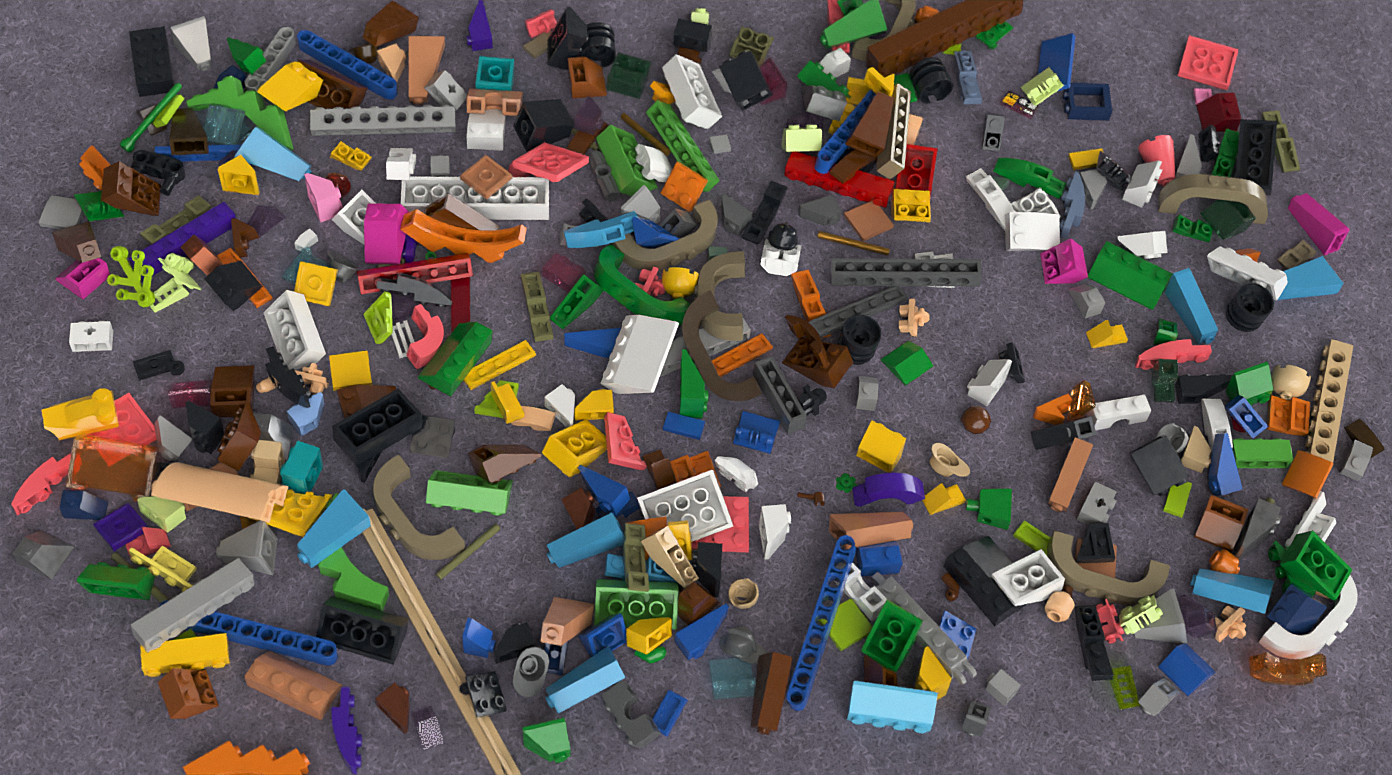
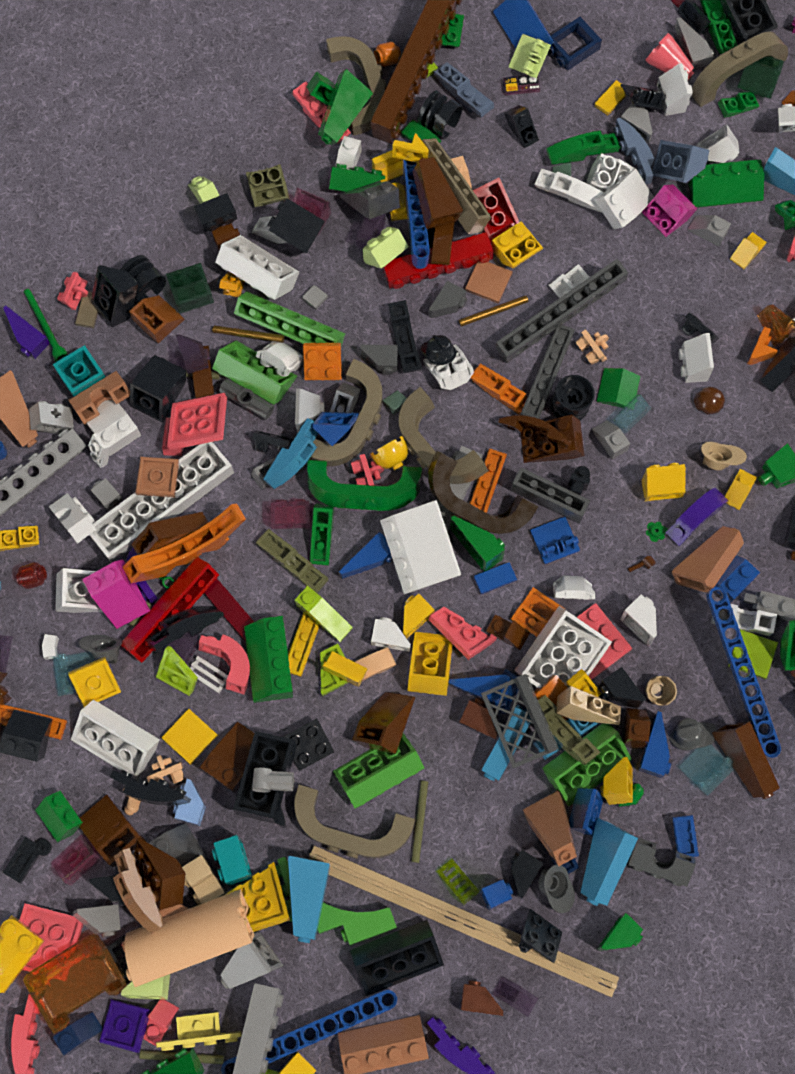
camera: 30 degrees left, 15 degrees up
(206, 352) = (58, 816): none -> green brick
(208, 431) = (138, 900): none -> medium nougat slope
(323, 197) = (33, 597): bright pink slope -> none
(374, 421) = (266, 780): none -> light grey piece
(457, 627) = (469, 894): none -> clear neon green slope
(460, 135) = (98, 451): none -> white slope
(499, 34) = (57, 351): none -> green piece
(525, 353) = (323, 614): none -> lime slope
(621, 531) = (535, 712): none -> dark grey fence
(901, 385) = (631, 413): none -> clear light blue tile
(1100, 229) = (679, 161): none -> sand blue slope

